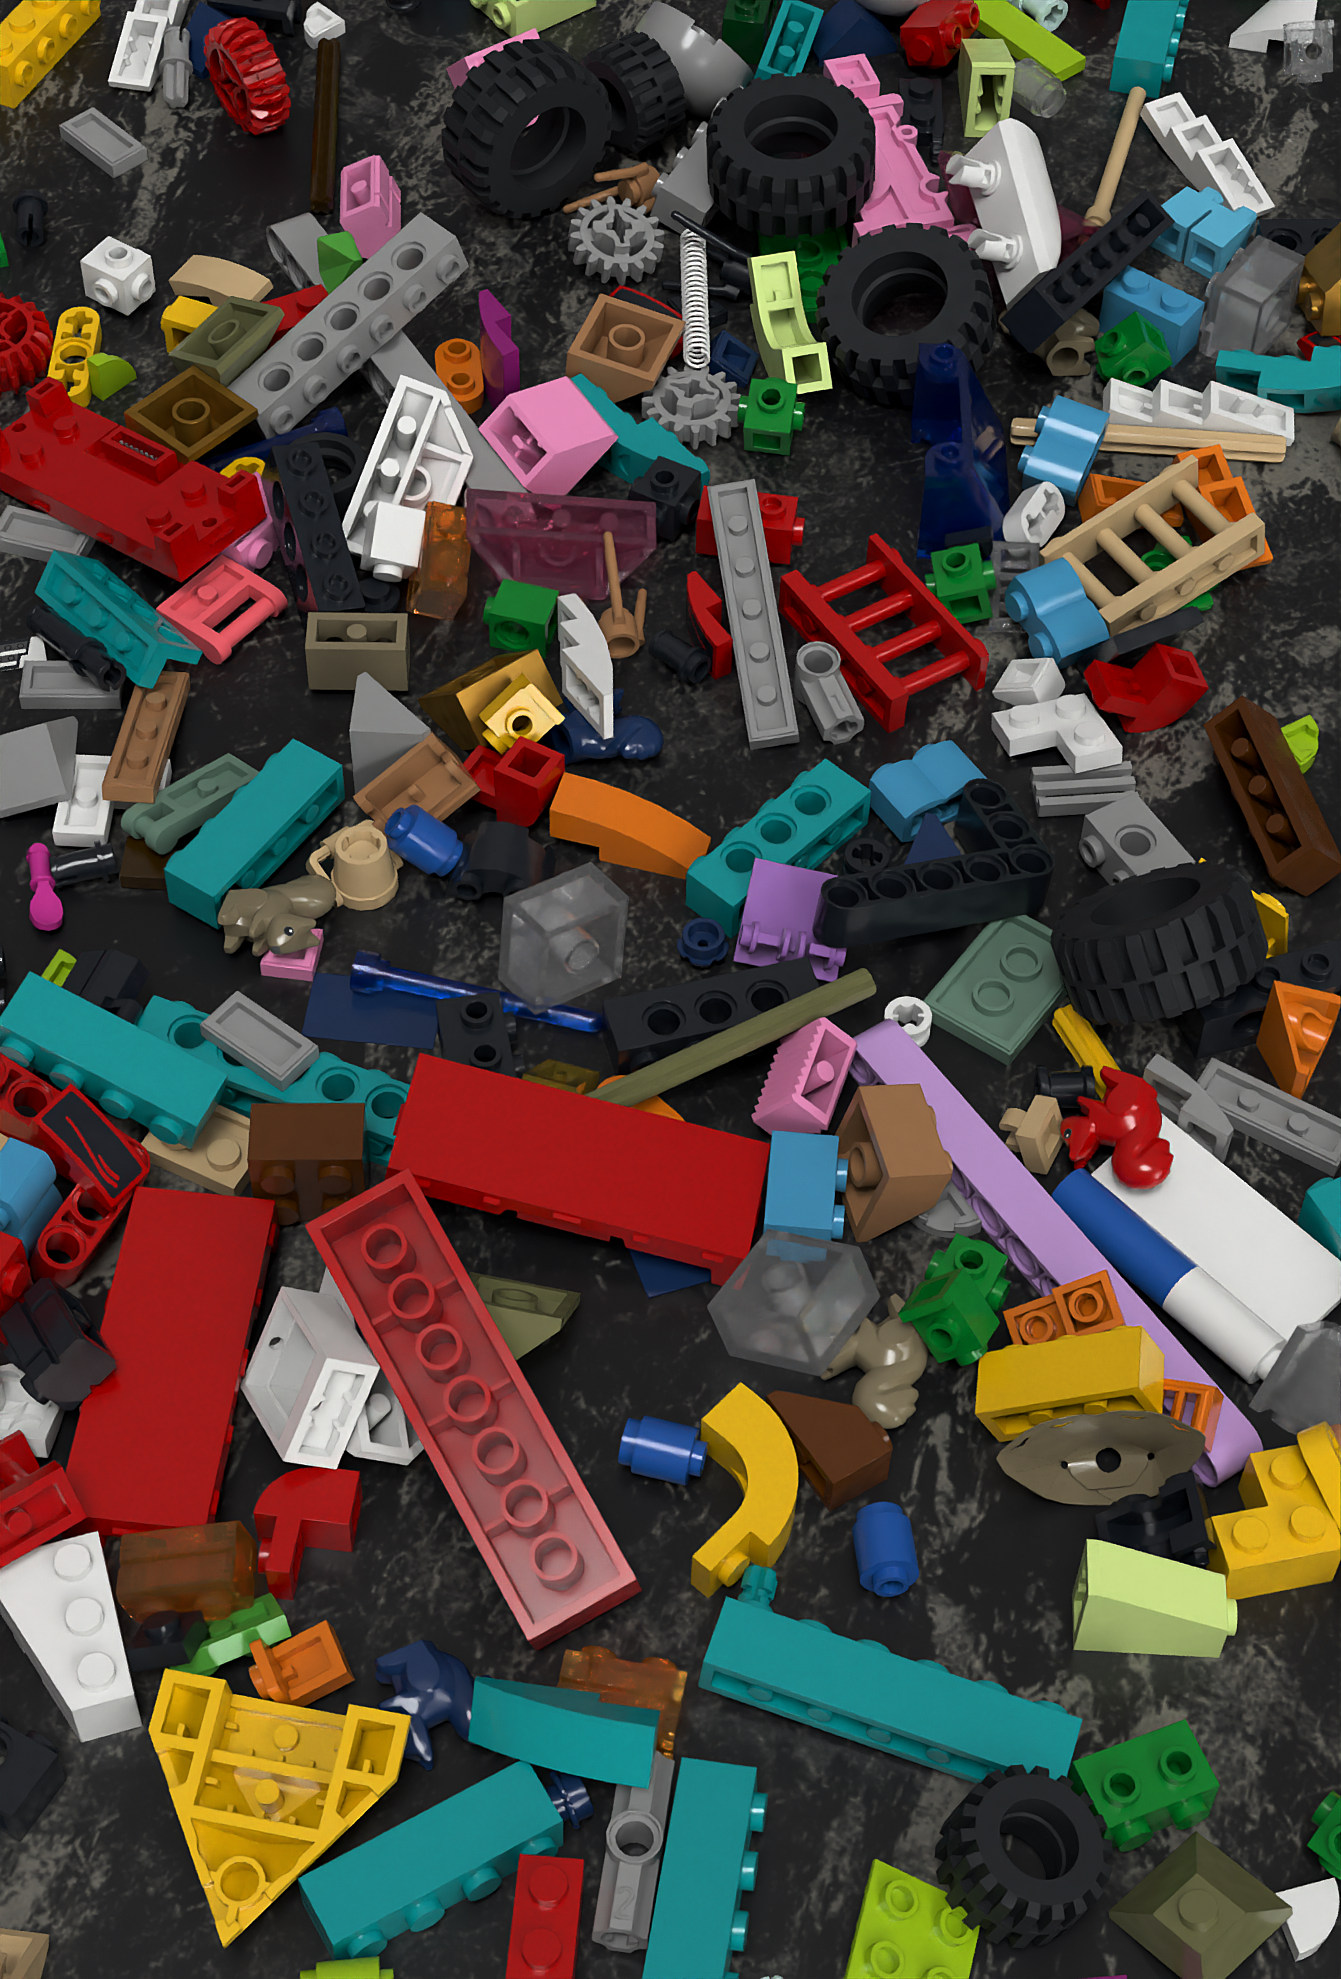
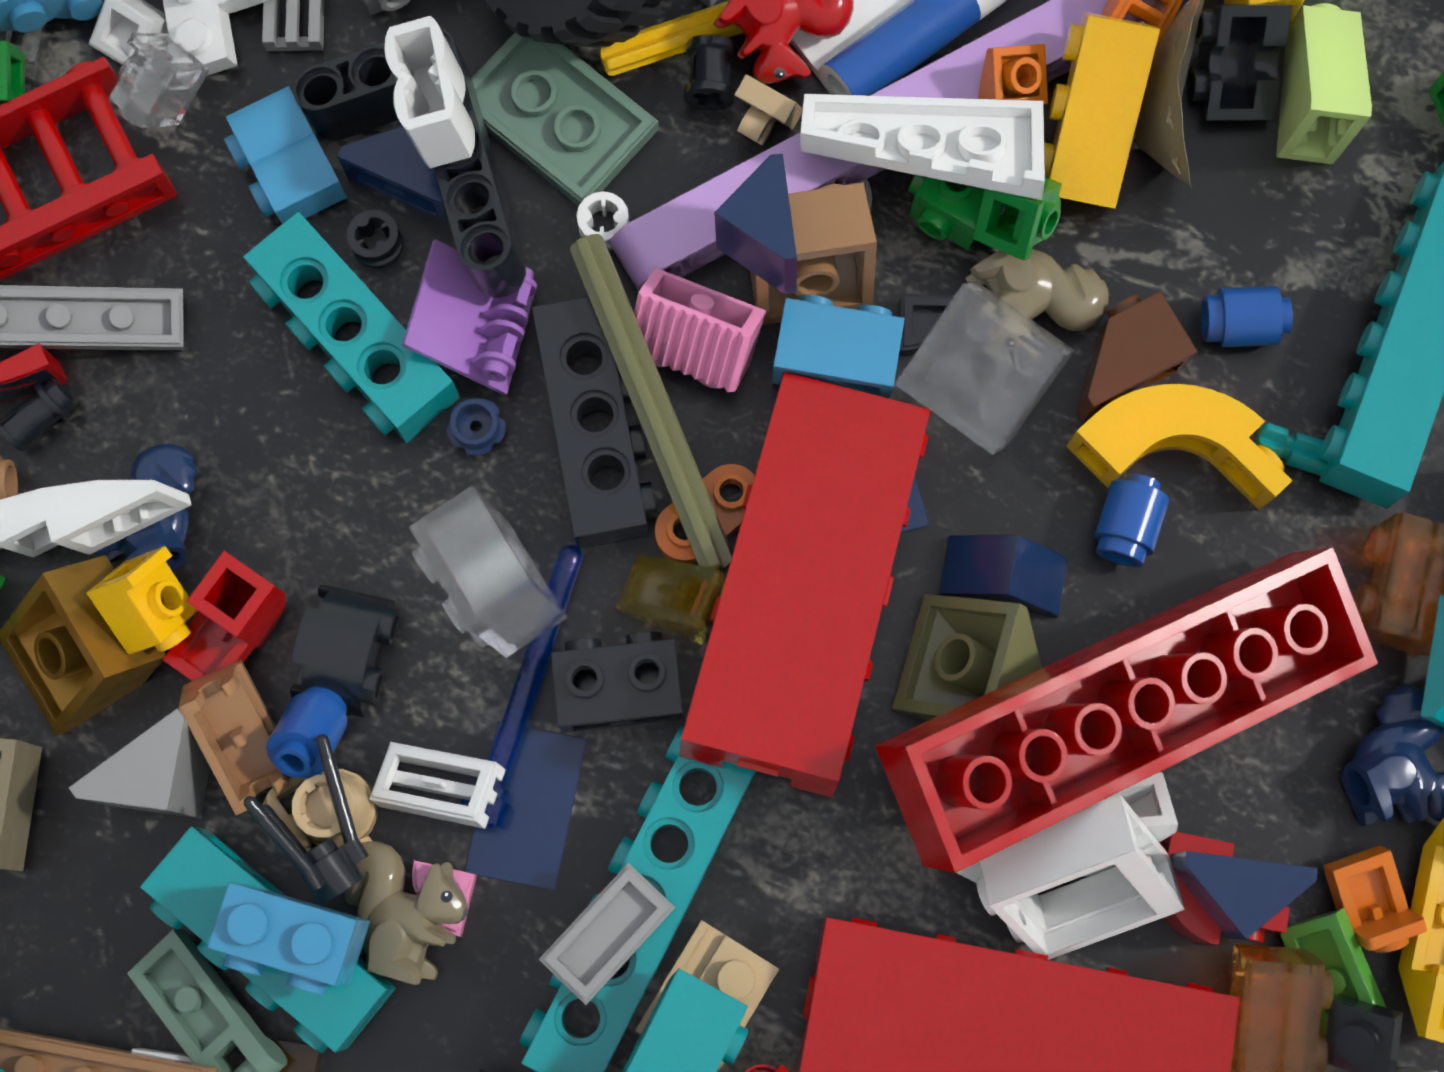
camera: 85 degrees left, 25 degrees up
(252, 817) = (288, 935): none -> dark azure brick
(300, 1505) = (1241, 891): none -> dark blue slope
(308, 1156) = (780, 875): reddish brown brick -> none
(310, 849) = (326, 866): none -> black plant
(378, 950) = (478, 794): none -> white tile
(601, 1358) = (1004, 571): none -> dark blue slope
(625, 827) = (305, 495): orange slope -> none
(826, 693) = (129, 249): light grey piece -> none
(890, 1078) = (758, 227): none -> dark blue slope
(972, 836) = (429, 92): none -> white brick
(977, 695) = (157, 81): none -> clear brick
(1006, 1234) = (945, 139): none -> white wing

